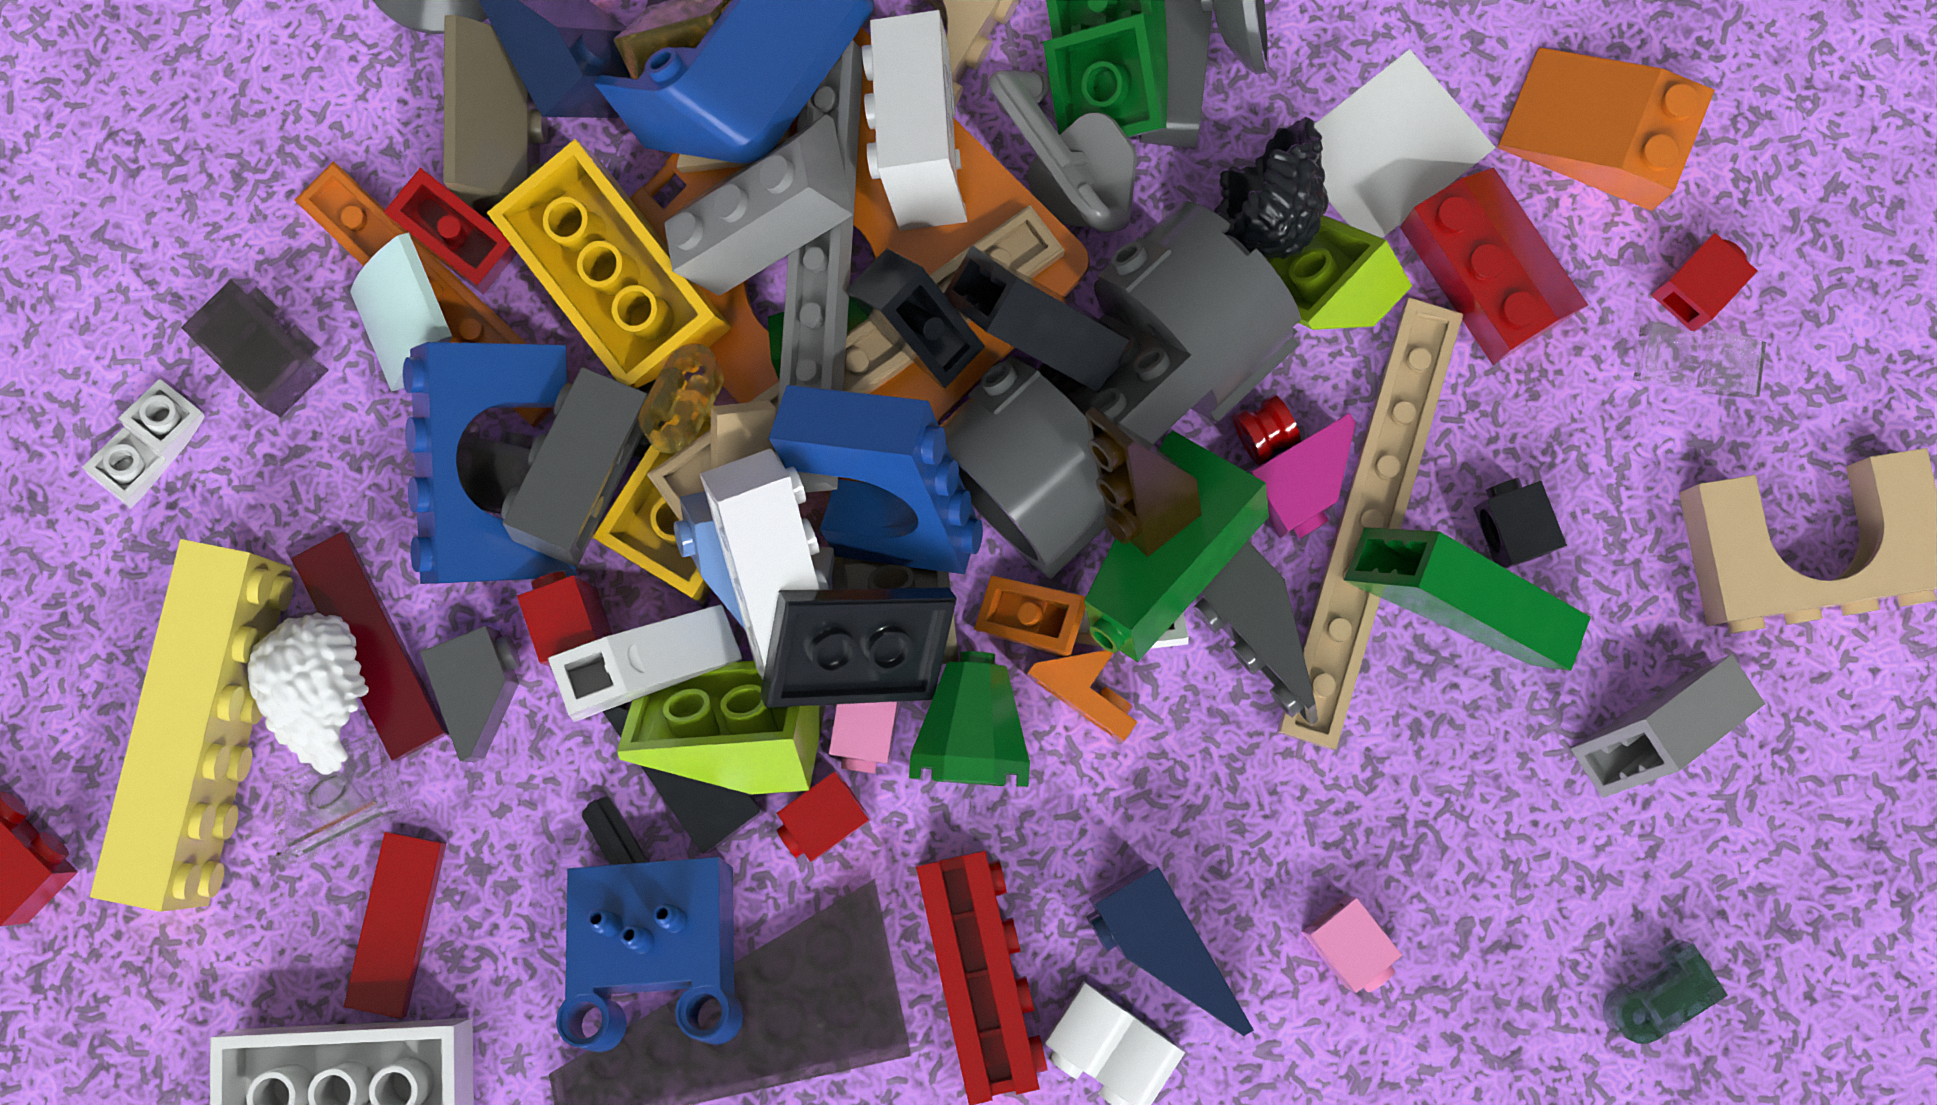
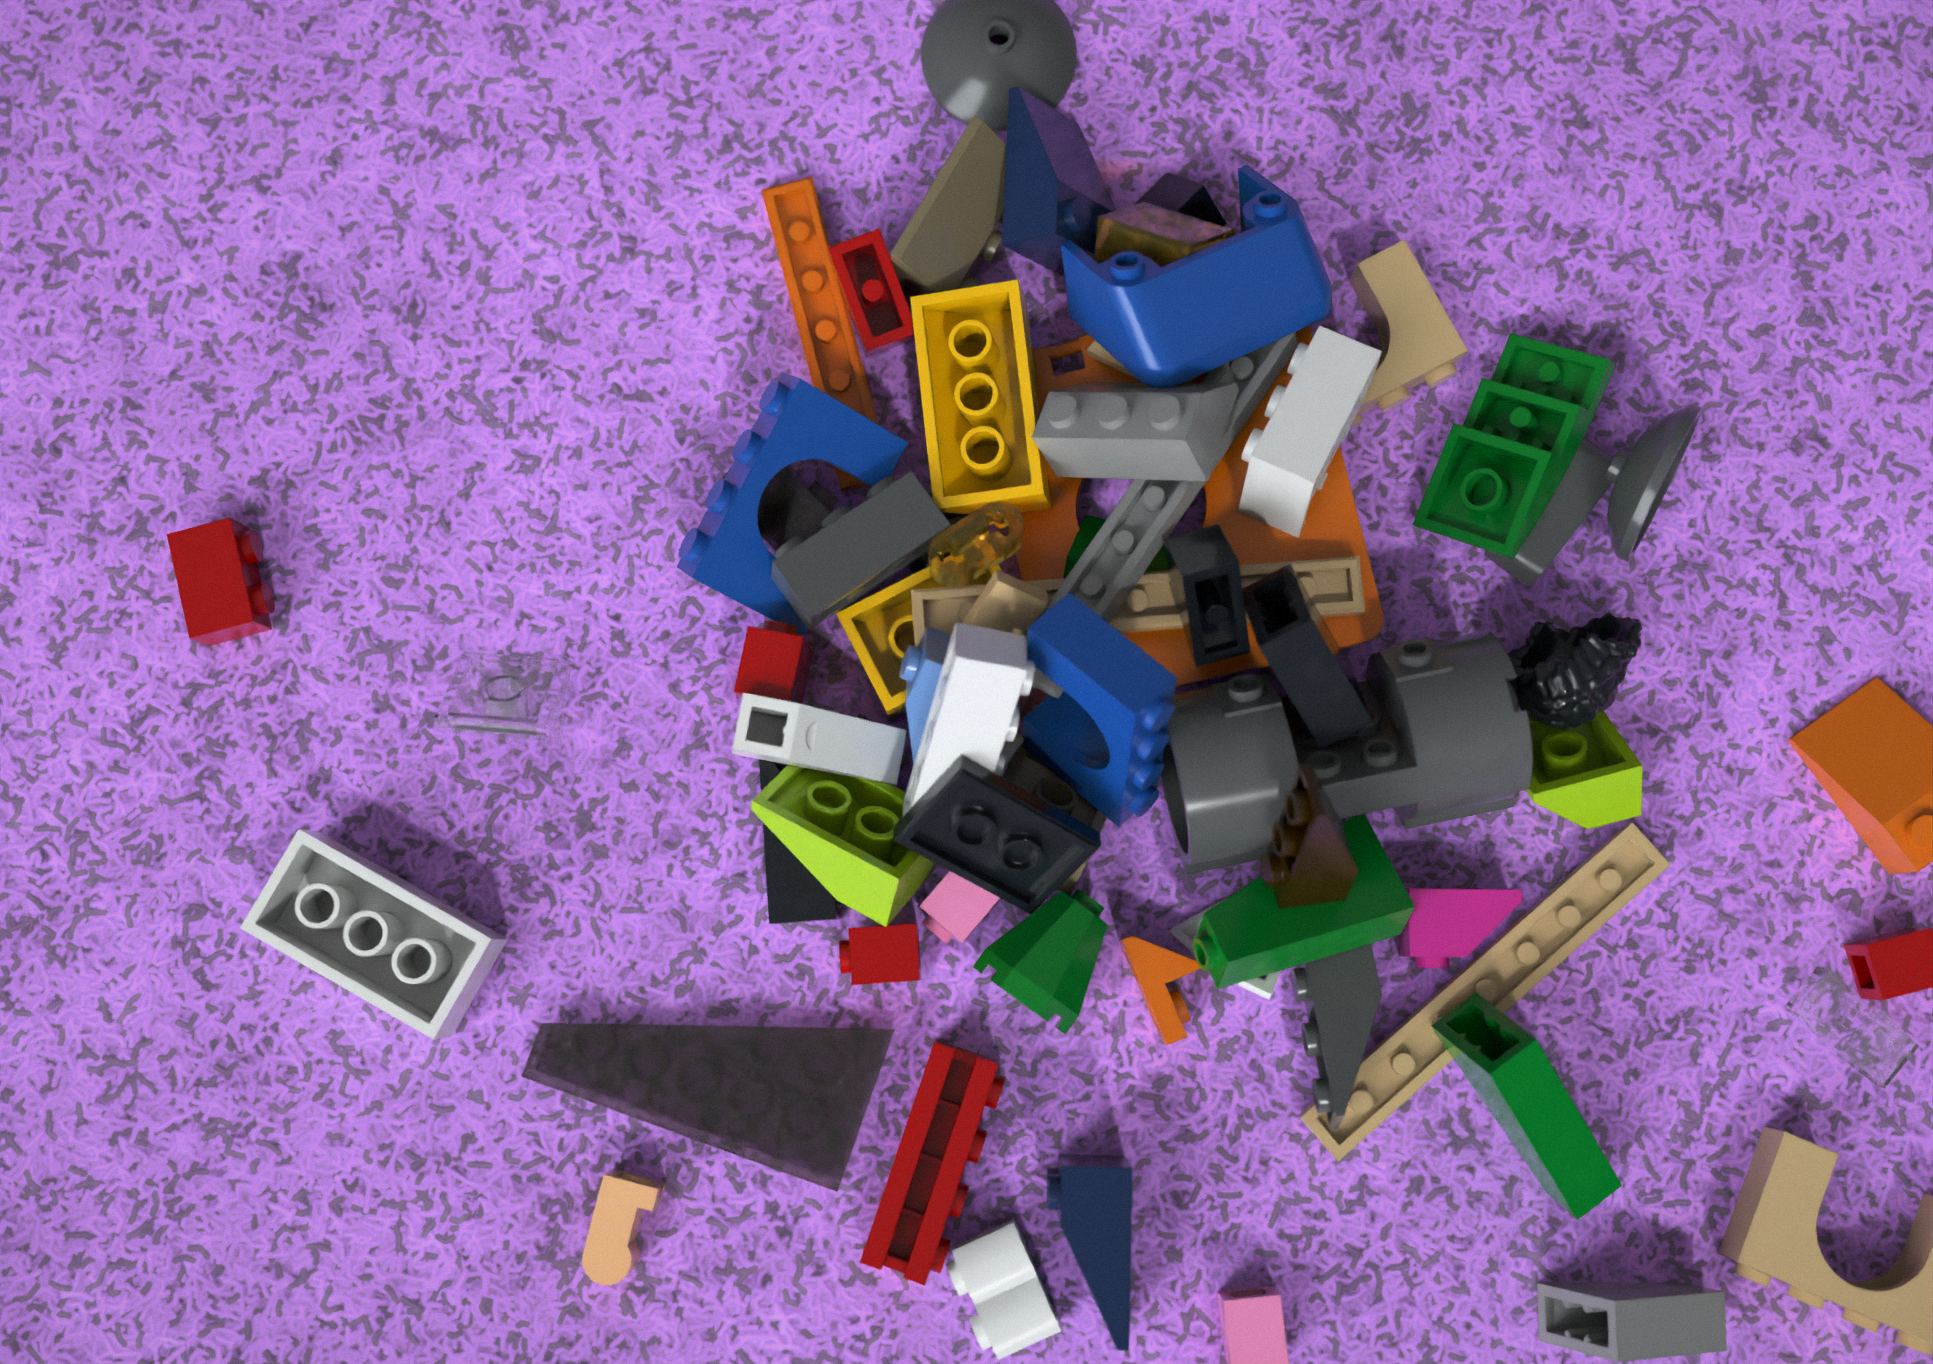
camera: 35 degrees right, 0 degrees up
(151, 439) = (524, 320): white slope -> none
(191, 731) = (430, 574): light yellow brick -> none
(256, 348) = (660, 293): clear smoke brick -> none
(308, 686) = (539, 595): white piece -> none
(395, 925) = (492, 826): red tile -> none
(396, 692) = (605, 589): dark red tile -> none
(397, 306) = (792, 331): light aqua slope -> none
(473, 687) = (668, 673): dark grey slope -> none
(645, 932) = (687, 958): blue piece -> none
(1031, 615) = (1153, 894): orange slope -> none
(1081, 173) = (1417, 552): light grey piece -> none
(1266, 429) = (1443, 859): red wheel -> none
(1395, 146) = (1700, 687): white sticker -> none
(1491, 263) = (1722, 836): red slope -> none
(1518, 523) = (1609, 1068): black brick -> none

